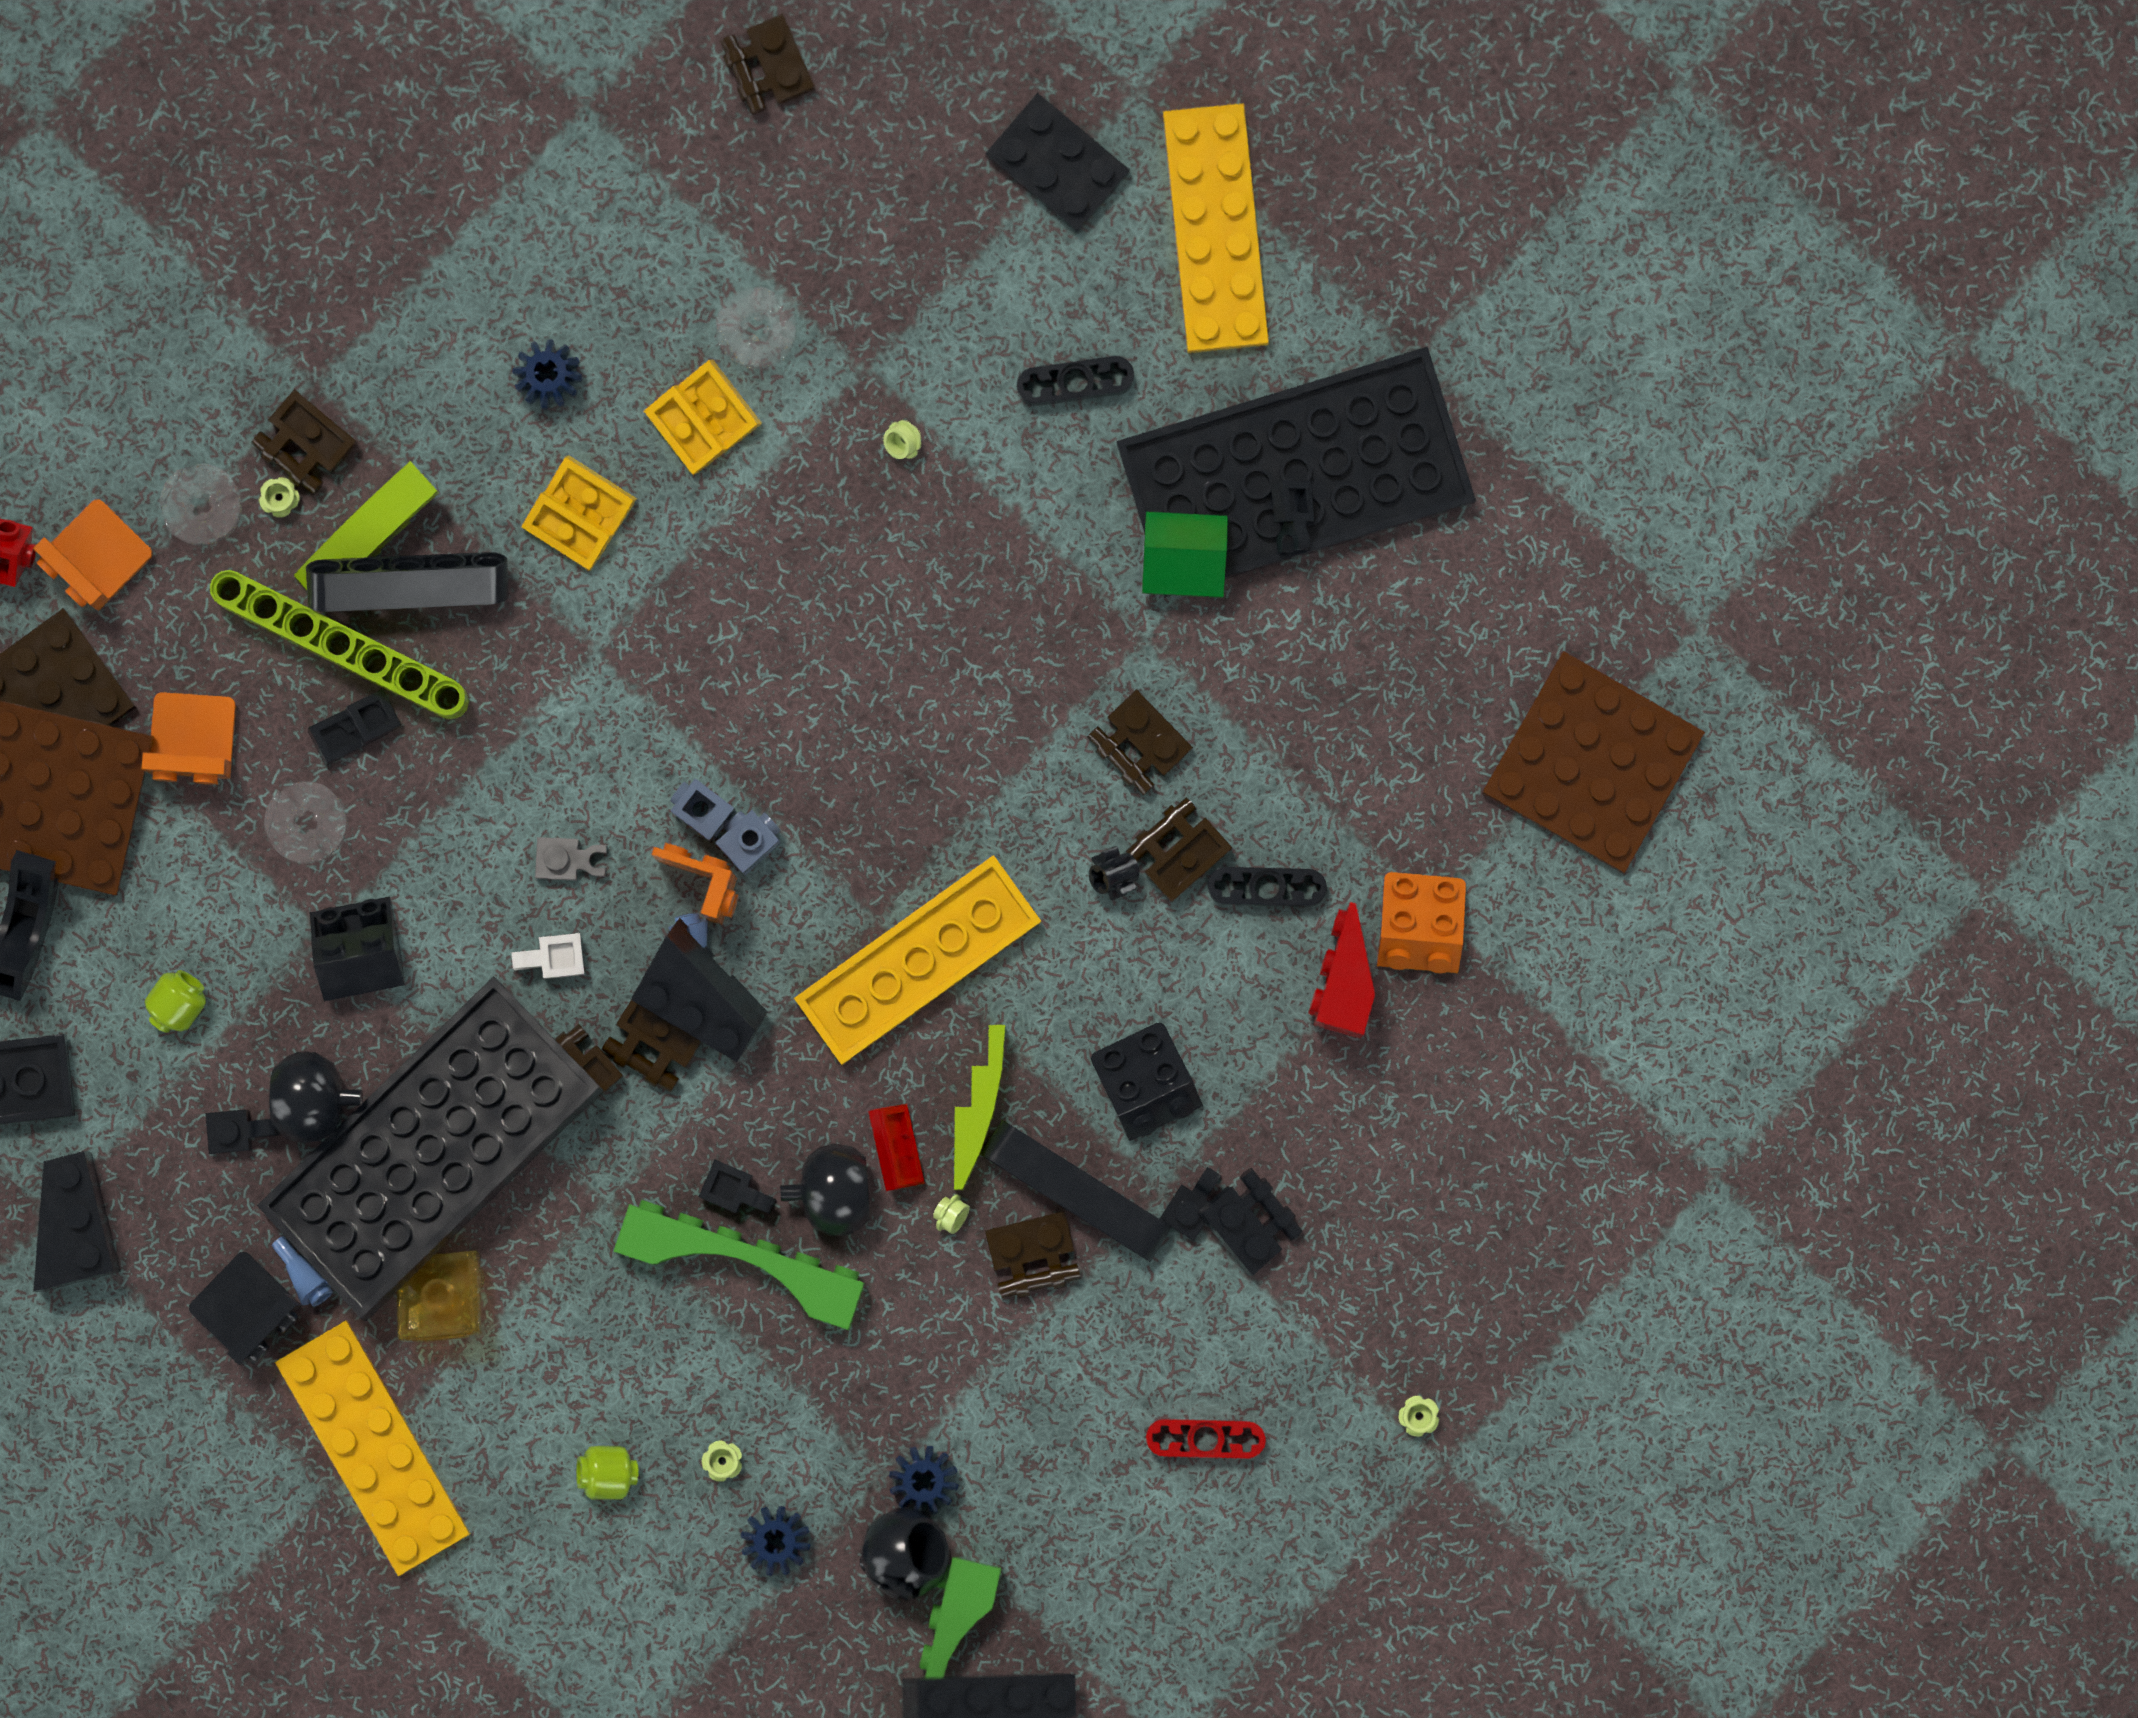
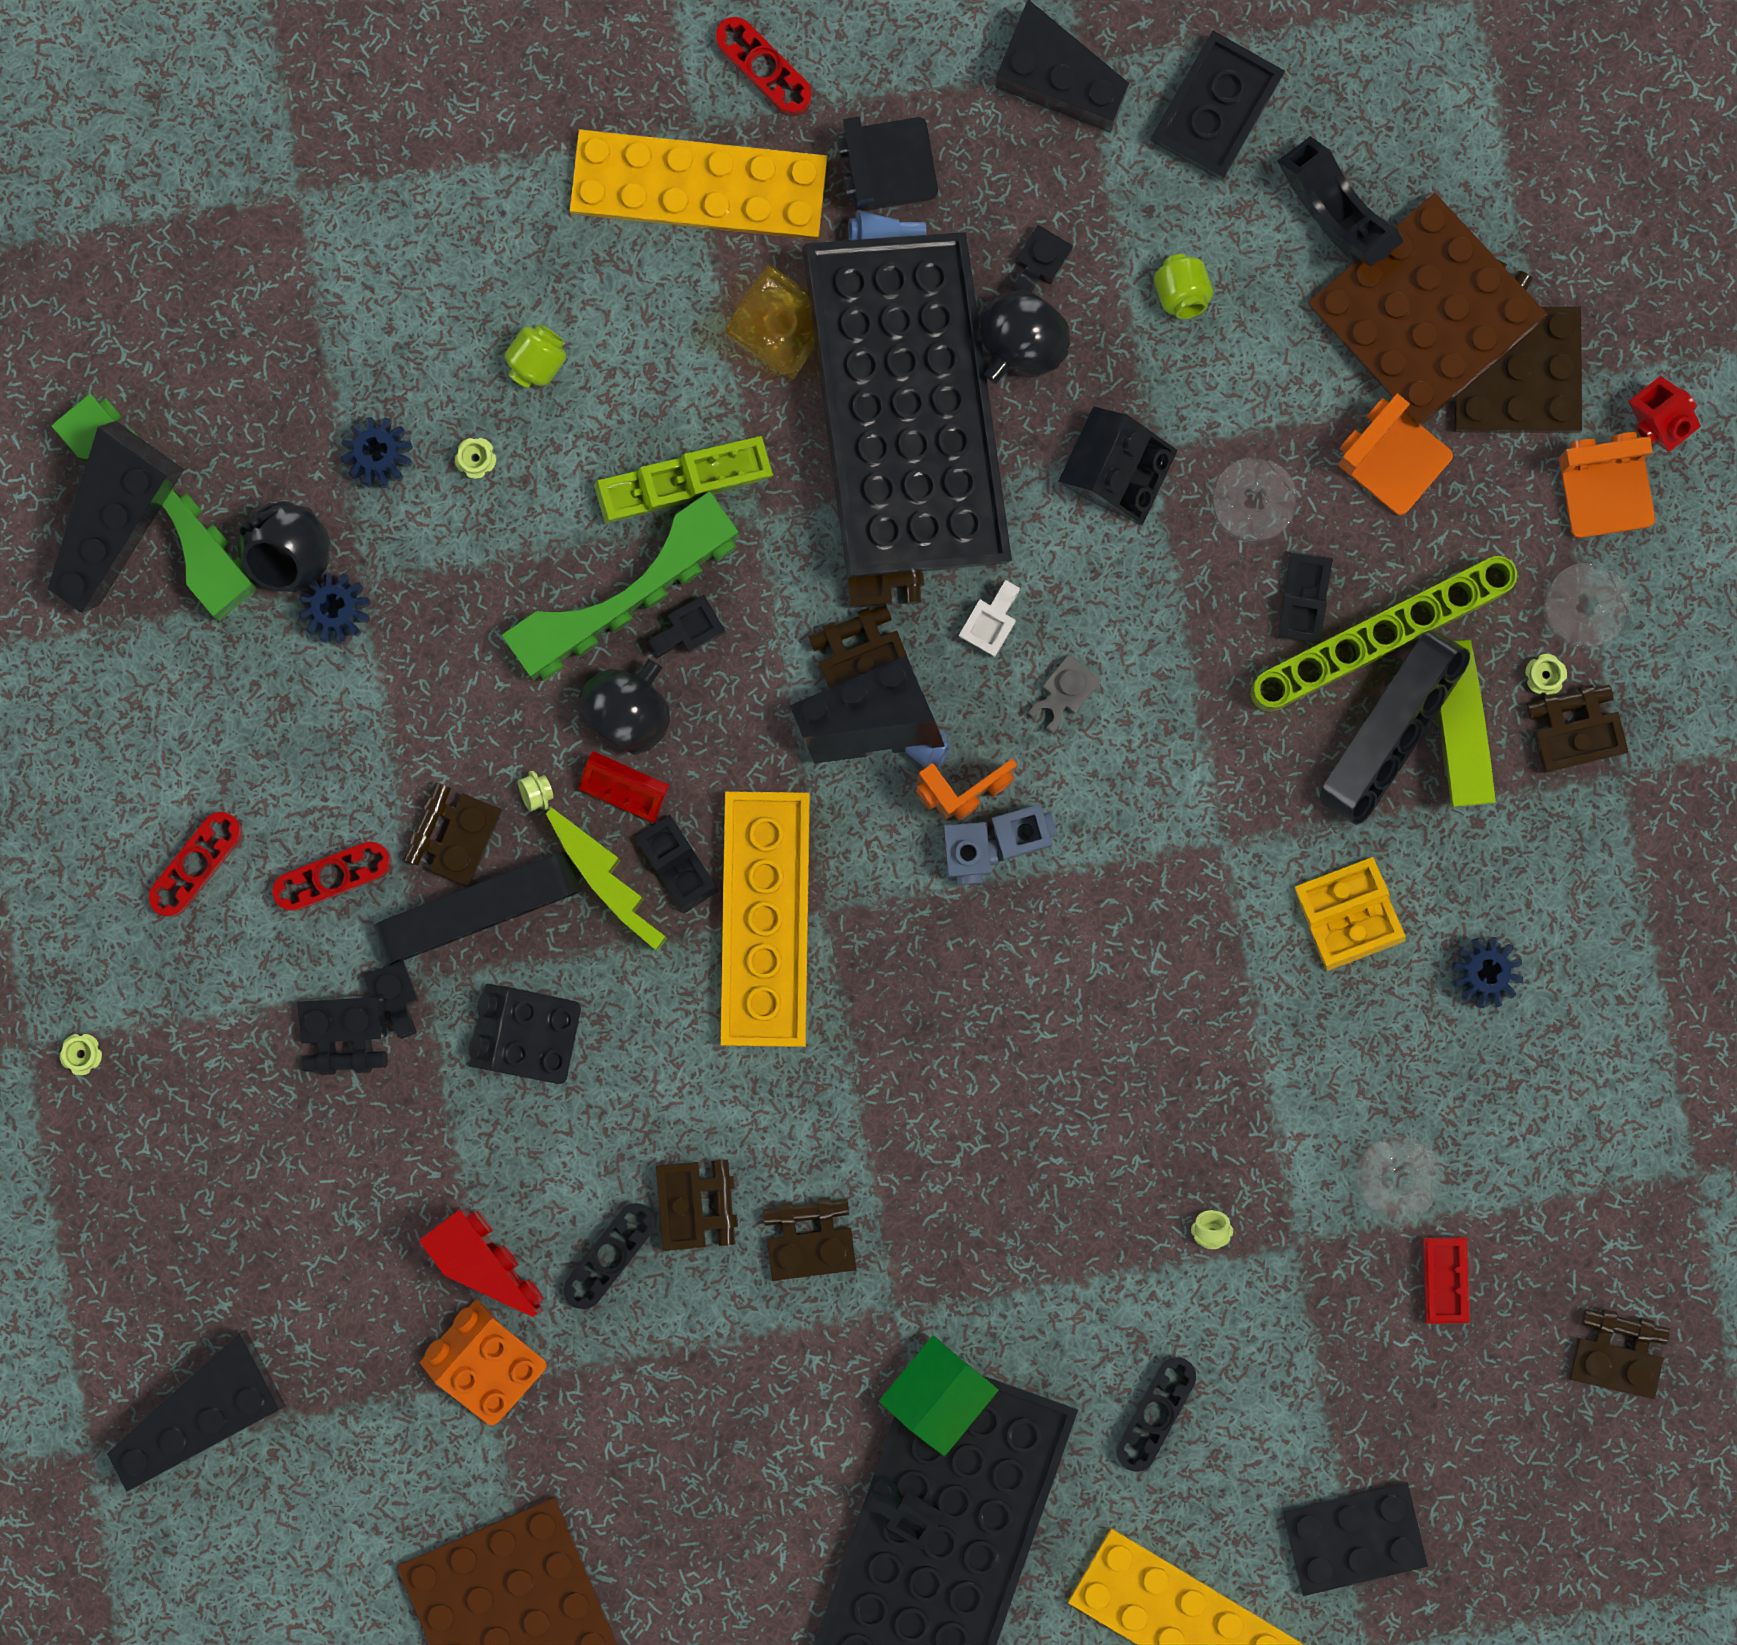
camera: 125 degrees right, 0 degrees up
(243, 1499) = (735, 52): none -> red beam
(619, 1282) = (683, 479): none -> lime slope
(702, 417) = (1355, 1076): yellow slope -> none
(808, 235) = (1446, 1280): none -> red plate
(925, 1061) = (677, 864): none -> black slope
(1114, 873) = (715, 1135): black gear -> none
(1167, 1331) = (306, 897): none -> red beam
(1618, 1107) = (207, 1409): none -> black wedge

